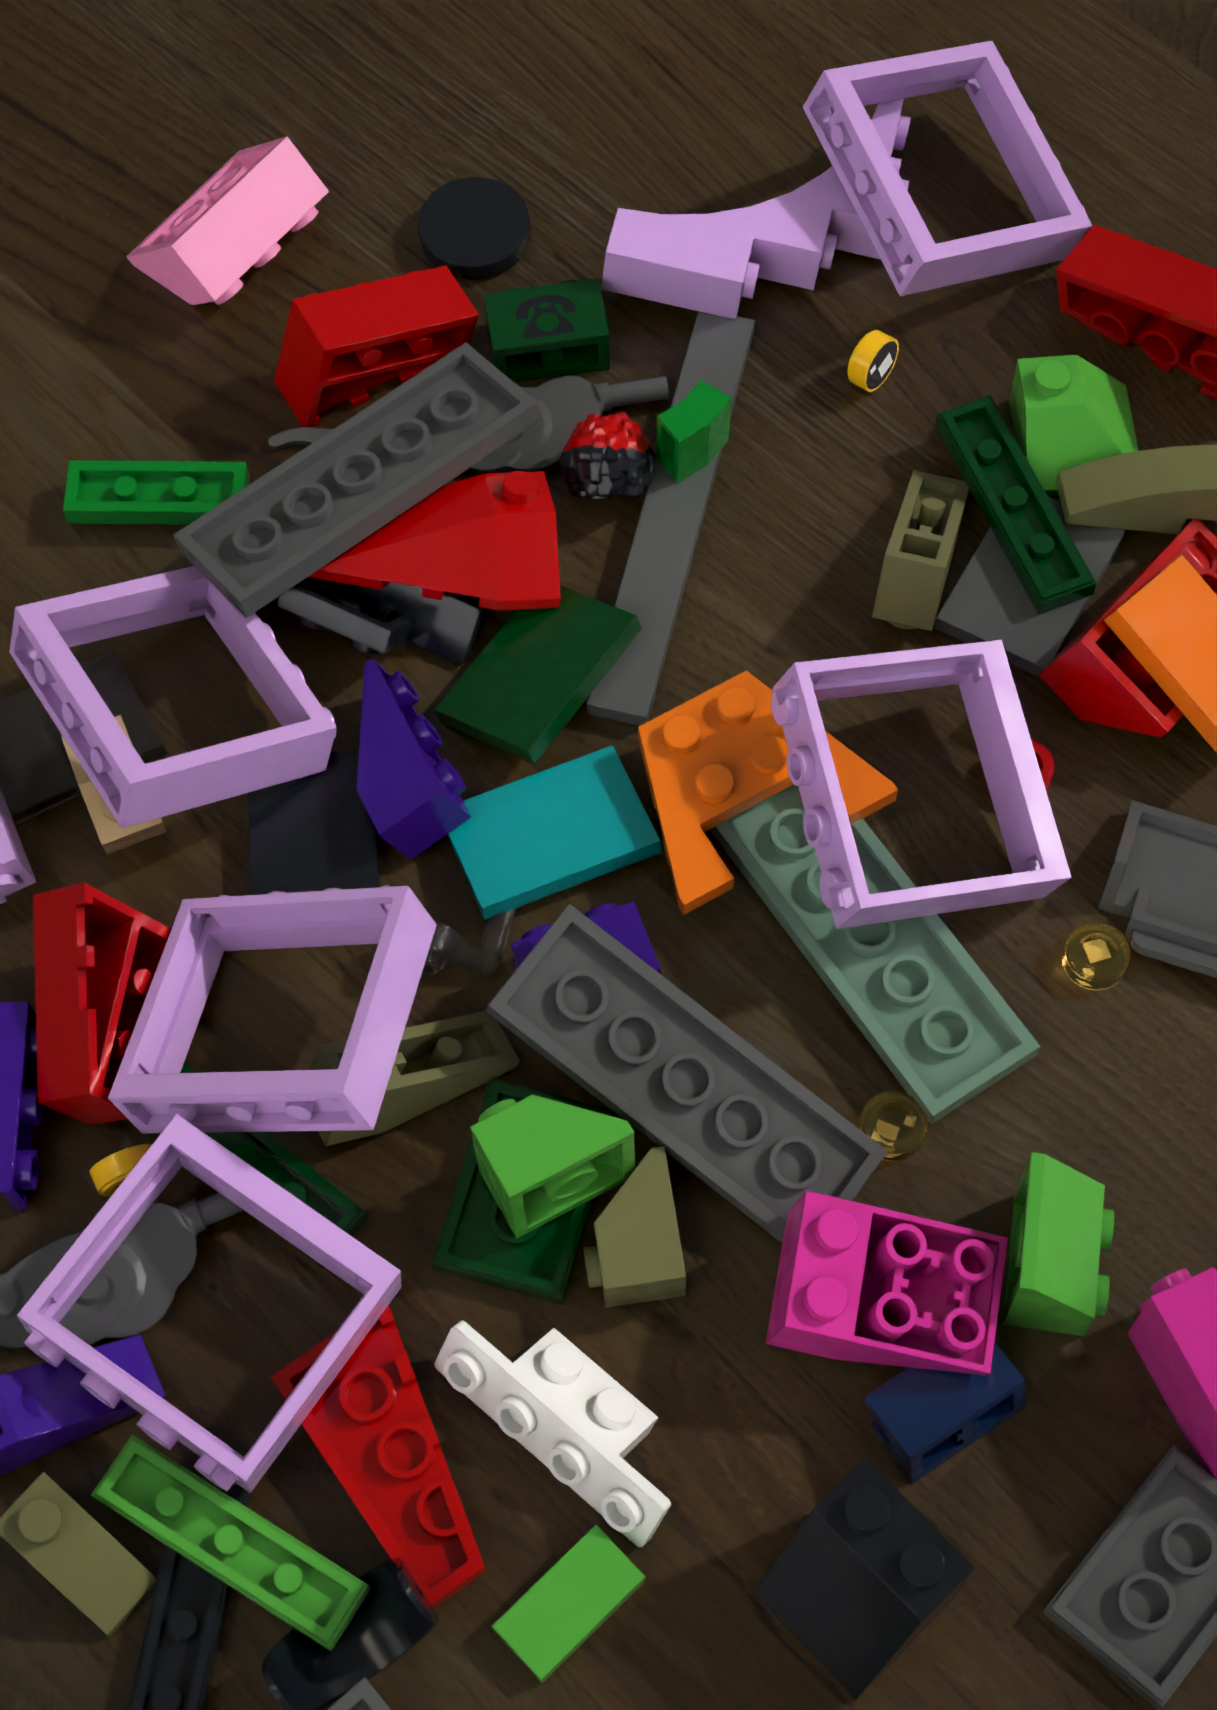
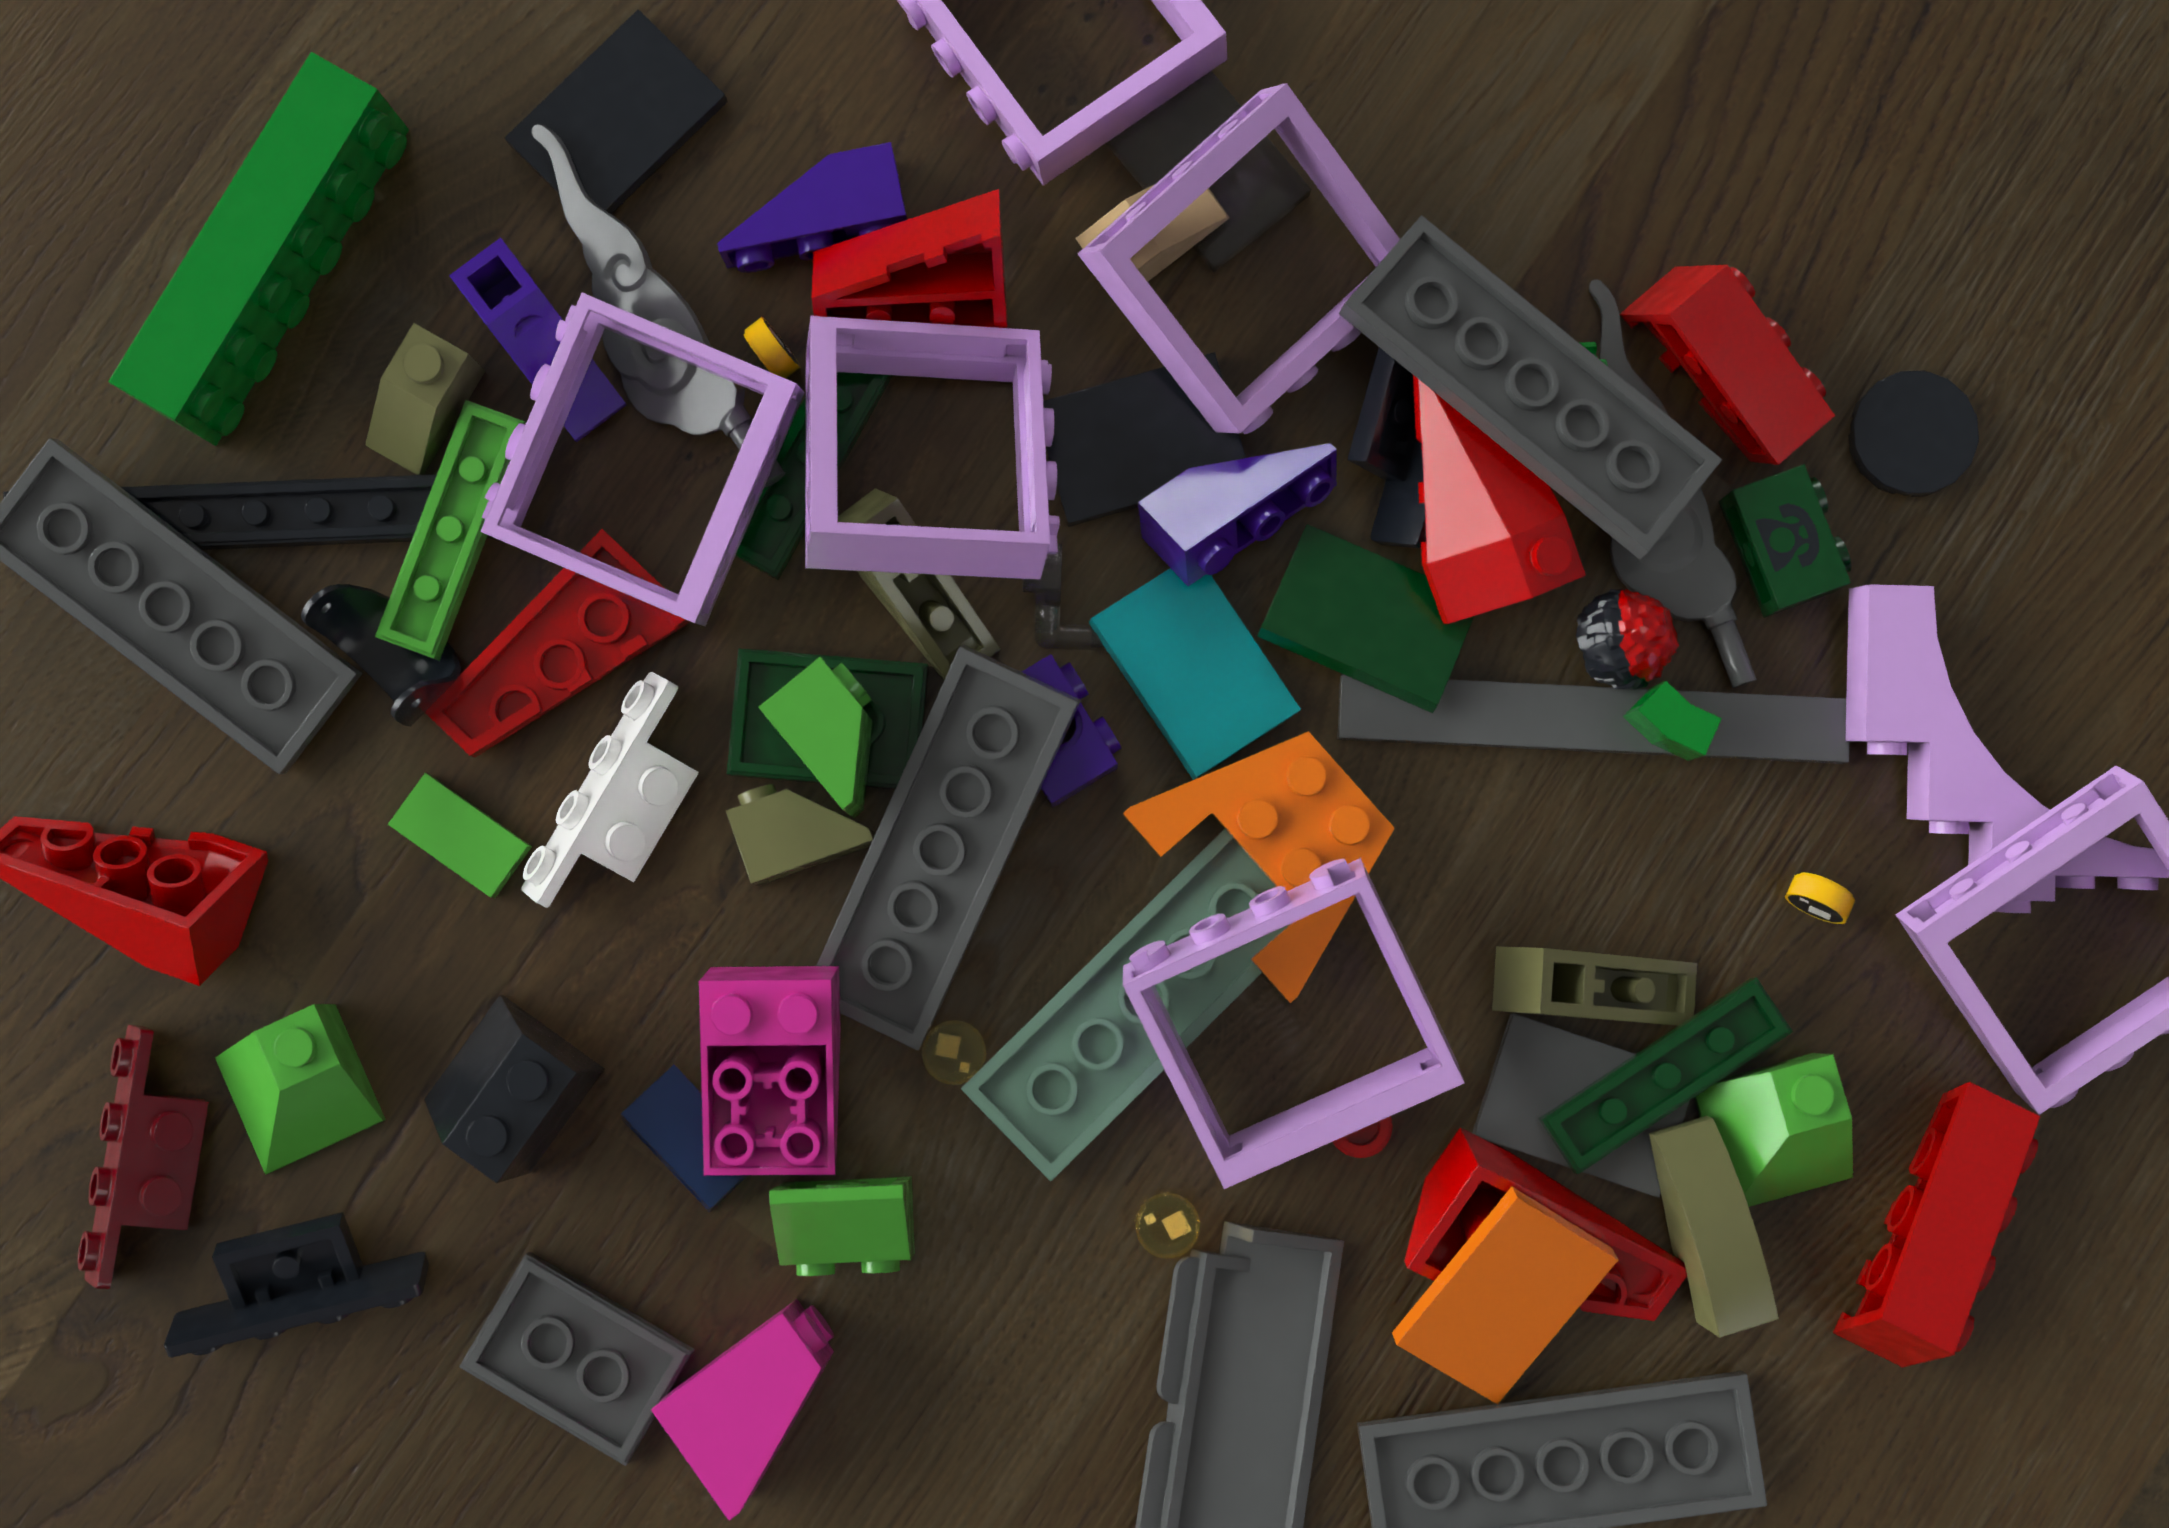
camera: 80 degrees right, 20 degrees up
(148, 490) = (1502, 181): green plate -> none
(231, 223) = (1856, 169): bright pink slope -> none

